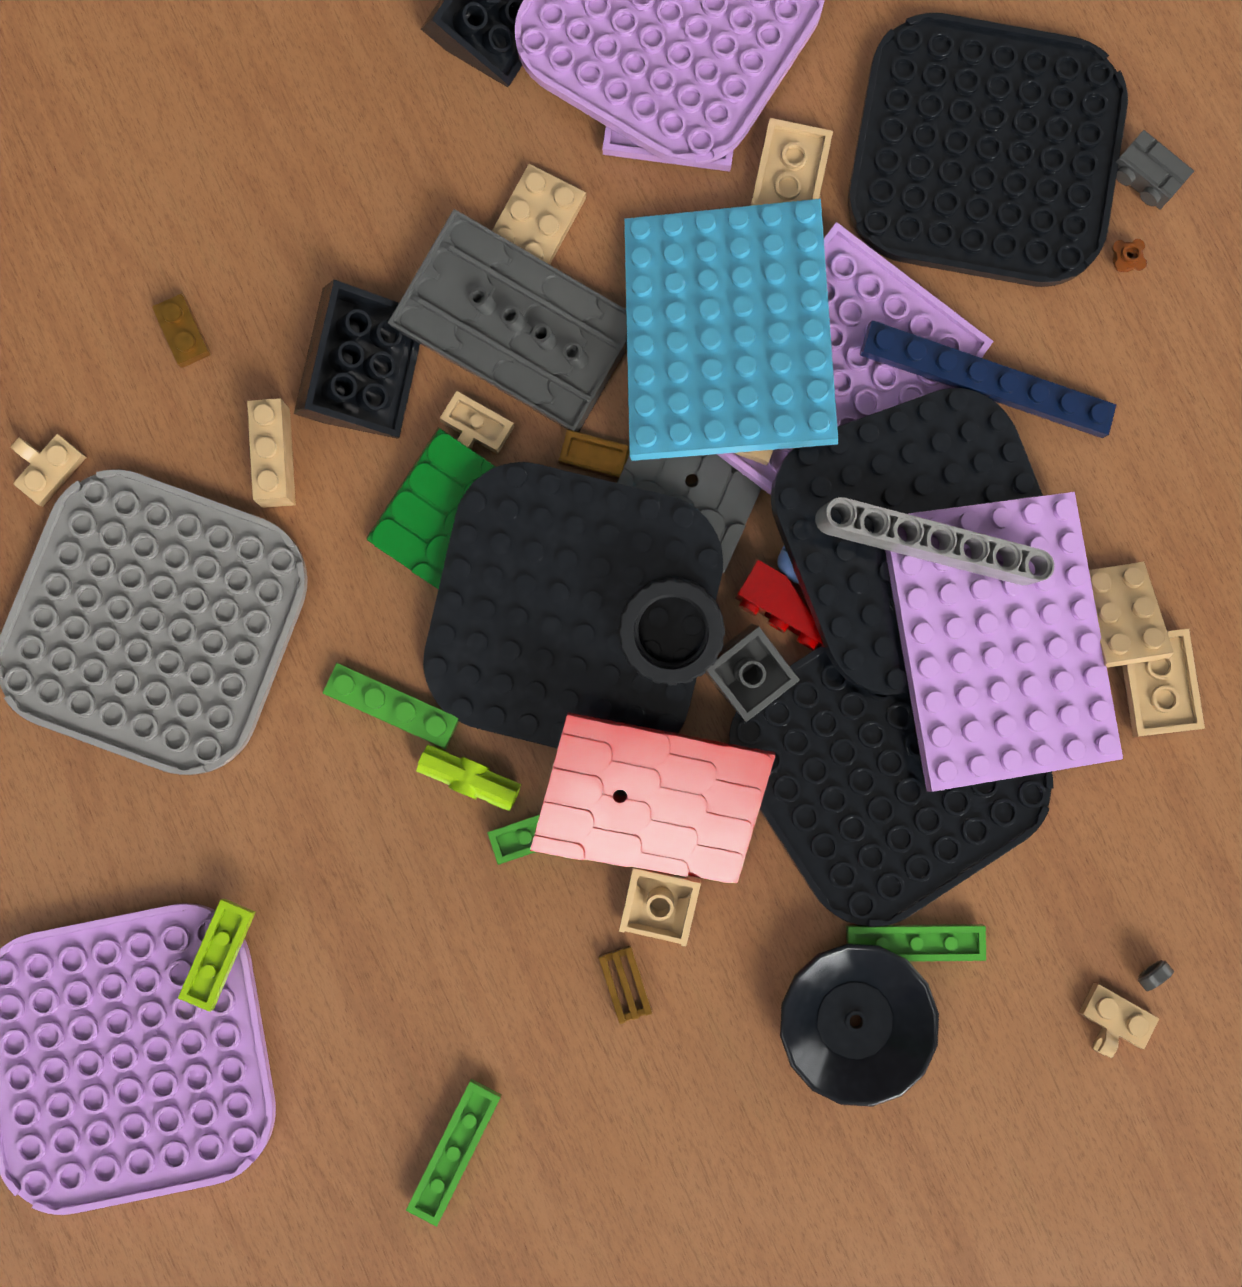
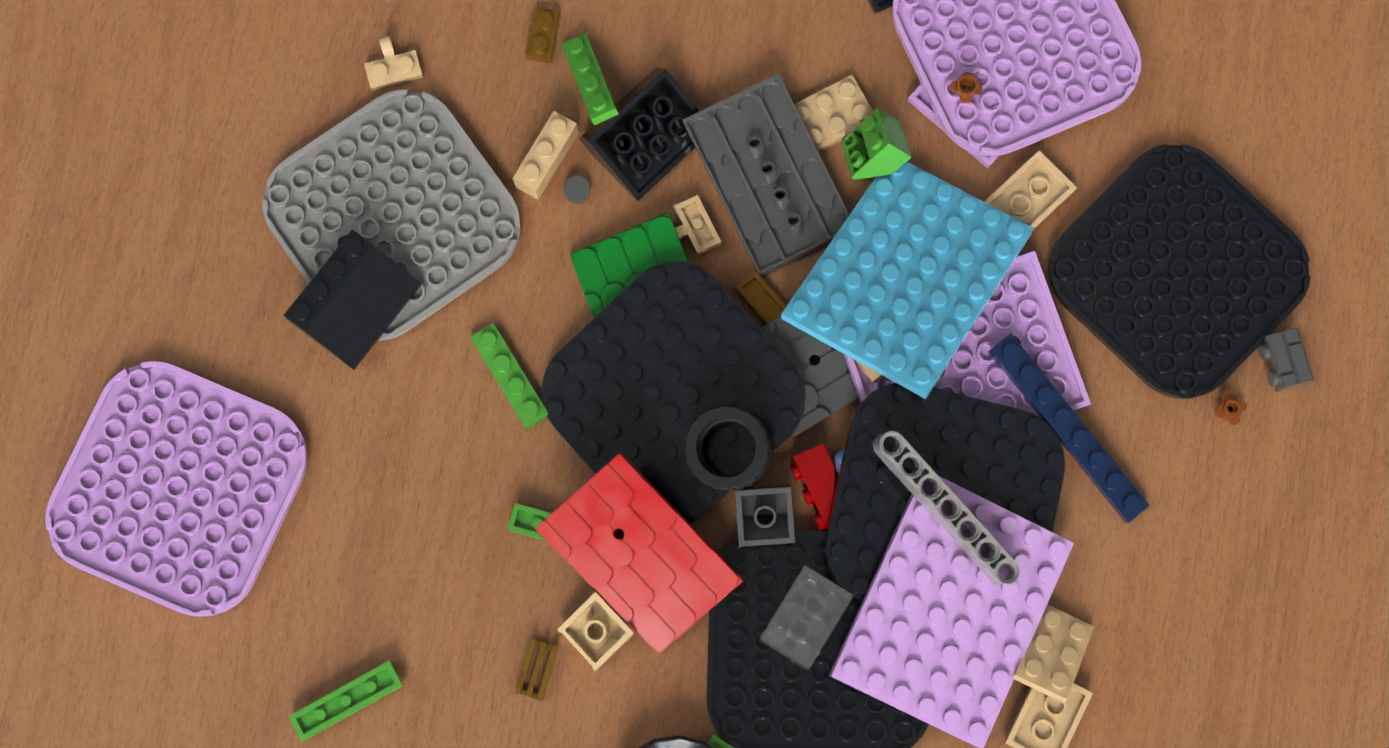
camera: 35 degrees right, 5 degrees down
(171, 739) = (352, 299): none -> black slope
(216, 955) = (283, 460): lime plate -> none
(262, 343) = (590, 79): none -> bright green plate
(327, 467) = (576, 189): none -> dark grey tile
(468, 777) = (528, 458): lime piece -> none
(605, 220) = (876, 146): none -> bright green slope
(656, 88) = (969, 80): none -> dark orange plate
(864, 748) = (806, 618): none -> clear brick

